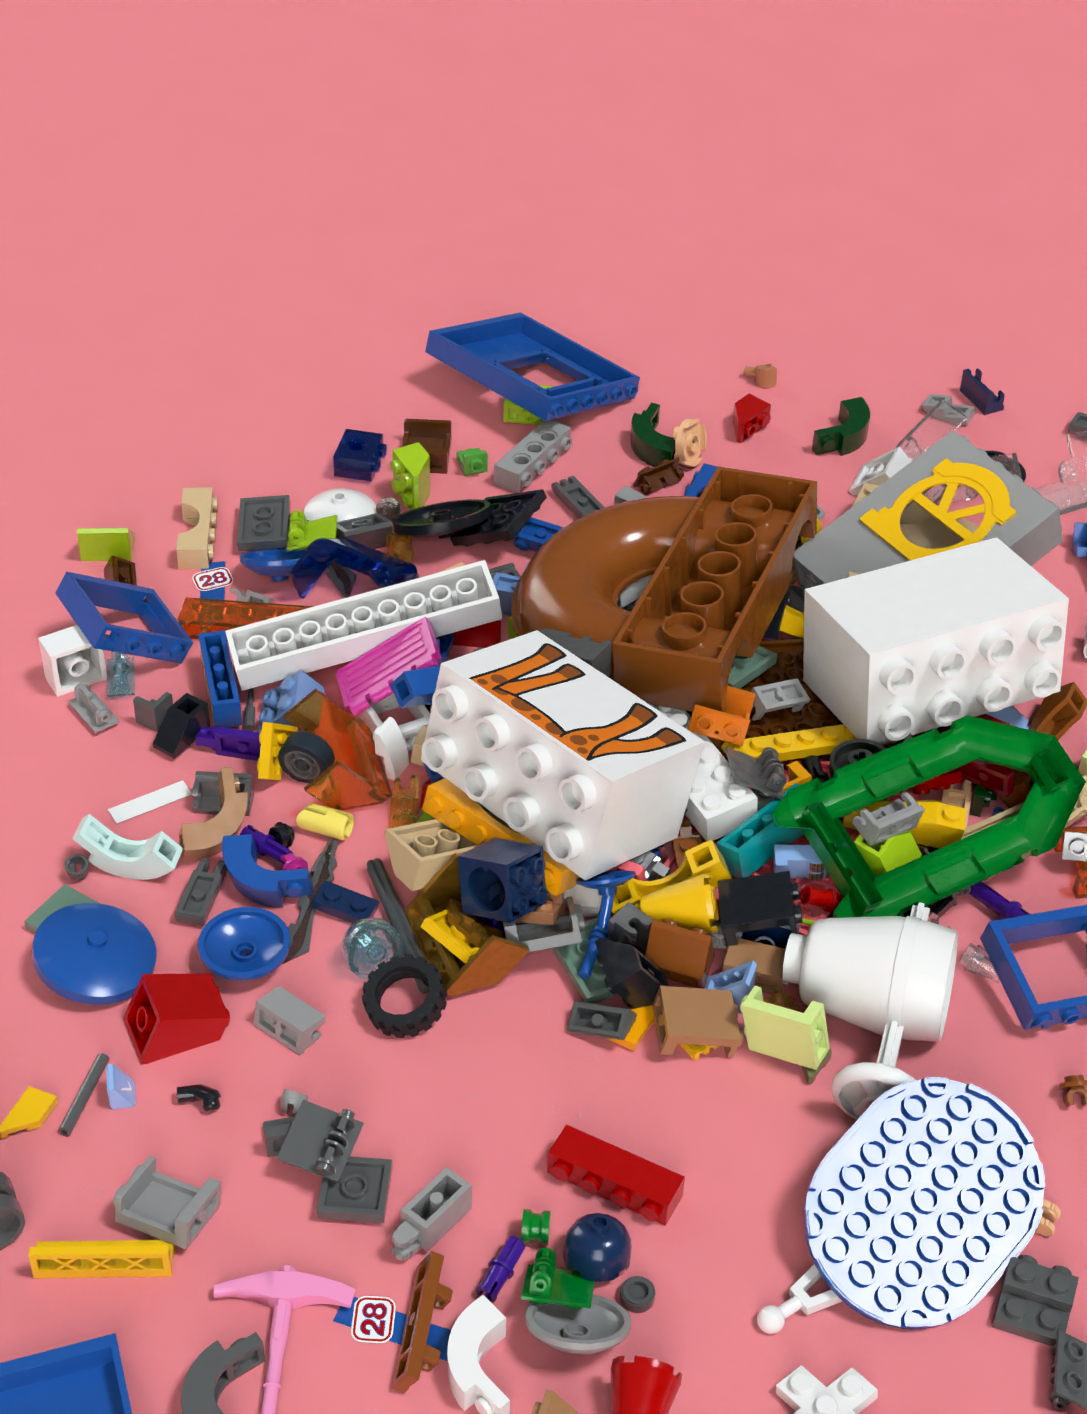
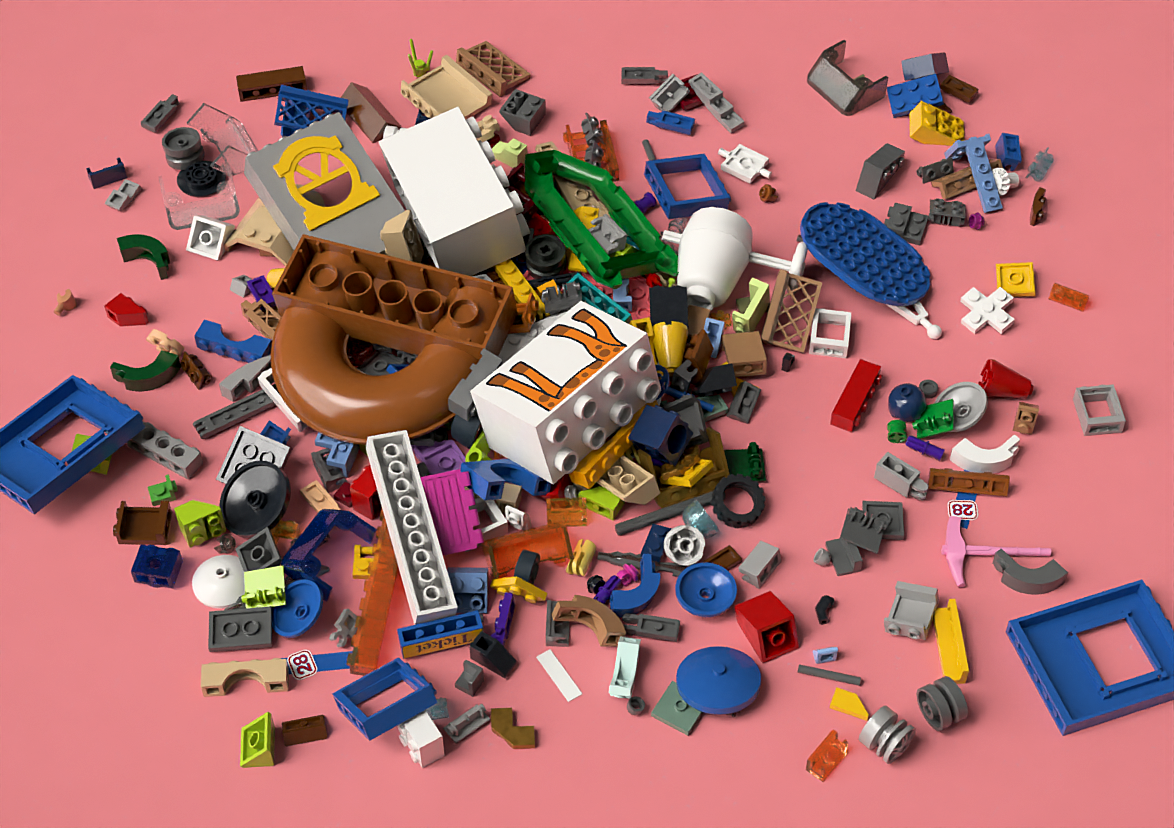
camera: 90 degrees left, 10 degrees up
(85, 743) = (516, 736): none -> pearl gold tile
(304, 978) = (725, 558): none -> reddish brown tile
(323, 920) = (684, 545): none -> white cylinder
(481, 1018) = (746, 462): none -> dark green hinge
(692, 1087) = (787, 361): none -> black tile
(752, 1173) = (837, 348): none -> white window
(785, 1058) = (775, 307): none -> medium nougat fence
(1034, 443) = (182, 147): none -> dark grey wheel

